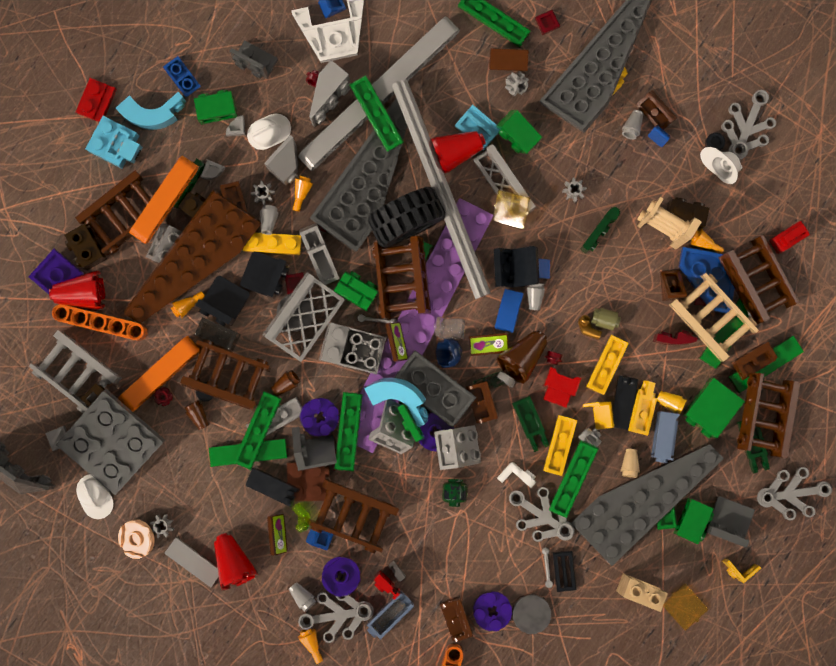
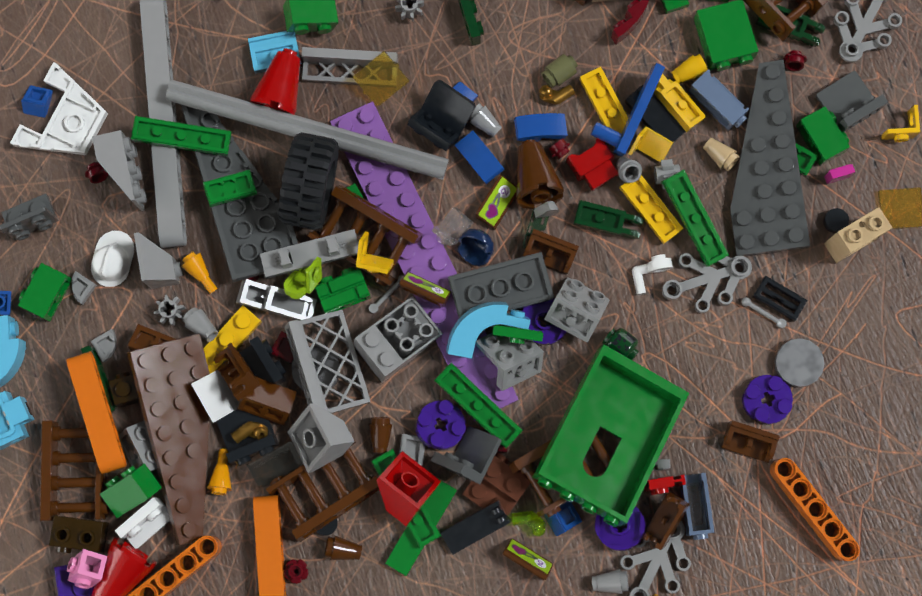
camera: 55 degrees left, 5 degrees down
(66, 269) = (86, 569): none -> bright pink brick
(121, 281) = (144, 523): none -> white bracket
(133, 257) = (131, 490): none -> green brick
(227, 302) = (250, 429): none -> pearl gold arm
(231, 264) = (215, 395): none -> white sticker
(252, 297) = (269, 402): none -> reddish brown hinge
(252, 348) = (319, 437): none -> light grey slope
(254, 266) = (236, 372): none -> reddish brown hinge
(262, 426) = (405, 487): none -> red slope
(344, 261) = (303, 280): none -> lime bracket
(363, 253) = (303, 254): none -> light grey hinge
(364, 603) = (665, 520): none -> reddish brown hinge
(366, 170) = (229, 188): none -> green plate
(386, 294) = (371, 262): none -> yellow bracket
(419, 522) = (629, 405): none -> green panel
(558, 334) = (540, 126): none -> blue slope
(573, 412) = (628, 169): none -> light grey cone
(588, 394) = (622, 140): none -> blue piece
(643, 570) = (835, 220): none -> black tile
(676, 550) = (839, 173): none -> dark pink tile
(730, 465) = (794, 60): none -> dark red plate

